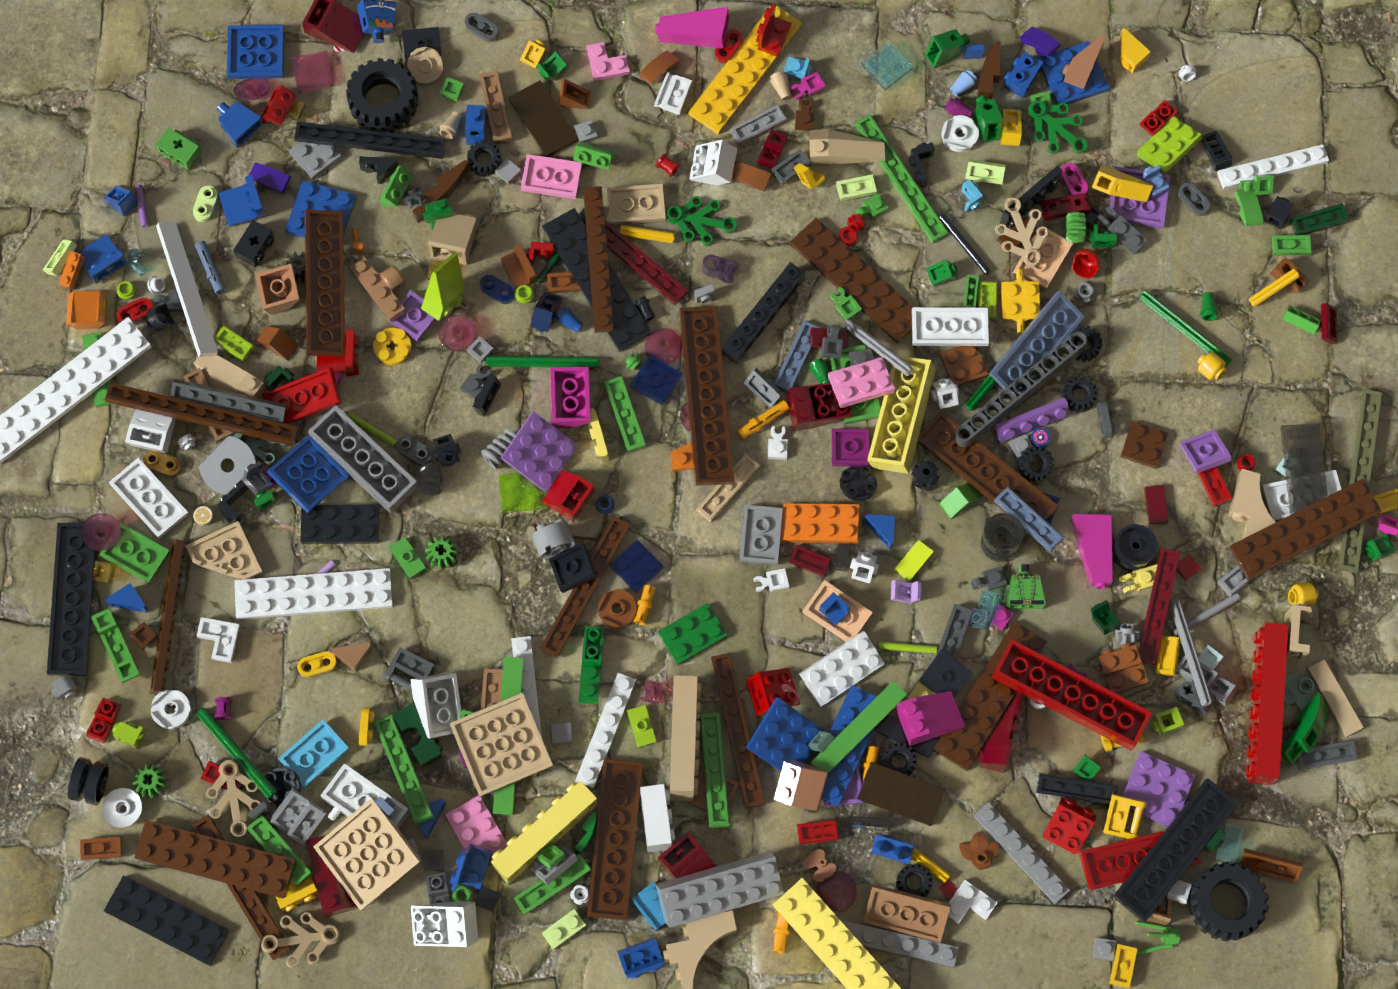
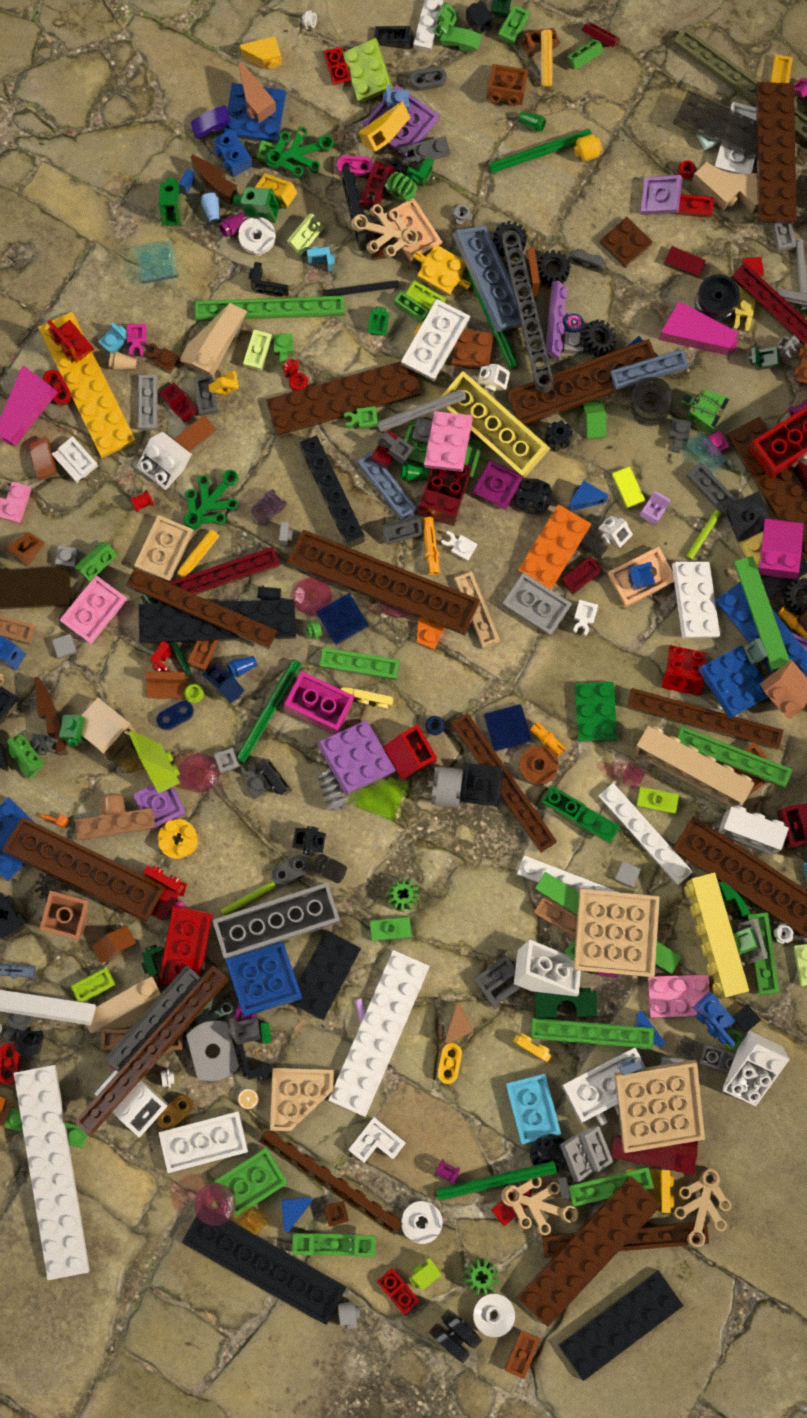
camera: 60 degrees left, 5 degrees up
(483, 148) = (48, 669): black tyre -> none
(1061, 376) = (532, 268): none -> dark orange tile
(1086, 263) = (438, 197): red hair -> none
(1229, 267) = (507, 84): none -> dark orange plate

